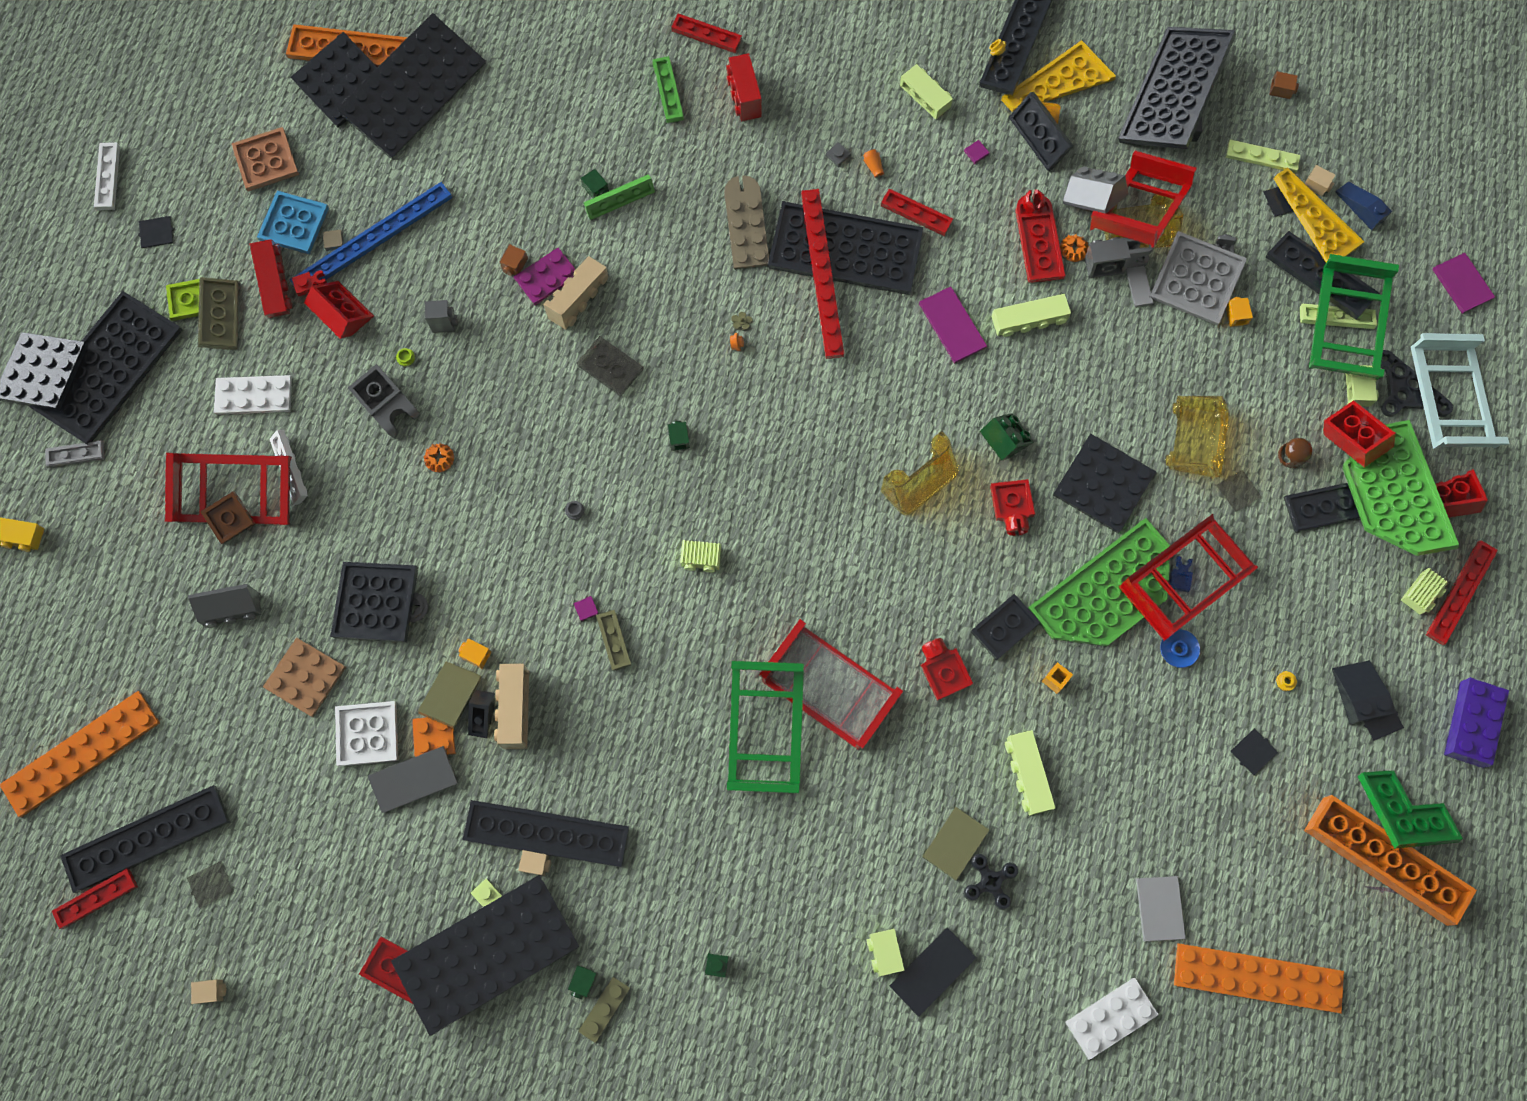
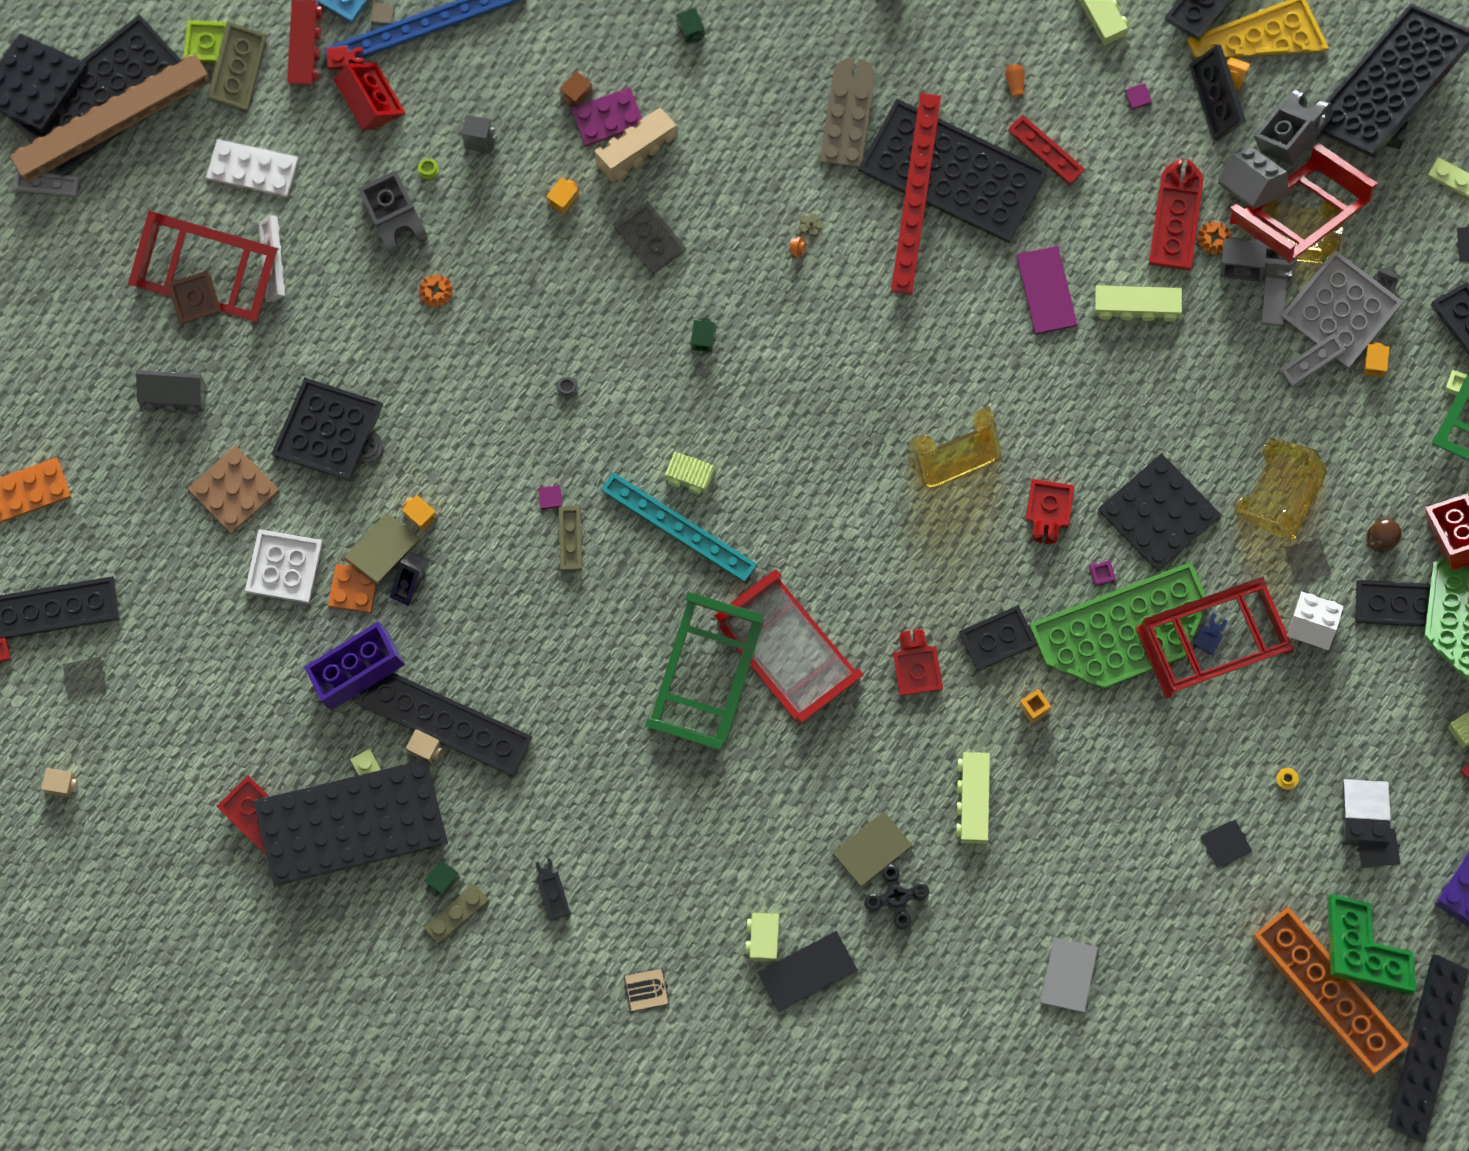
camera: 20 degrees right, 0 degrees up
(115, 384) = (110, 118): none -> medium nougat brick
(413, 779) = (318, 625): dark grey tile -> none
(452, 808) = (354, 665): none -> dark purple brick
(512, 706) = (444, 579): tan brick -> none
(526, 349) = (563, 195): none -> light orange brick
(619, 197) = (714, 46): bright green plate -> none
(686, 965) = (552, 892): none -> black plate
(704, 605) = (679, 527): none -> teal plate
(716, 965) = (584, 900): dark green brick -> none
(794, 1030) = (646, 989): none -> piece
(838, 154) = (977, 58): dark grey plate -> none
(1006, 435) = (1066, 431): dark green slope -> none
(1074, 547) = (1102, 573): none -> magenta tile
(1110, 144) = (1292, 127): none -> dark grey brick
(1111, 1018) = (980, 1069): white plate -> none
(1188, 324) = (1313, 360): none -> light grey tile
(1188, 644) = (1189, 705): blue dish -> none
(1259, 978) = (1149, 1073): orange plate -> none
(1267, 539) = (1315, 620): none -> white brick
(1490, 889) = (1428, 1048): none -> black plate

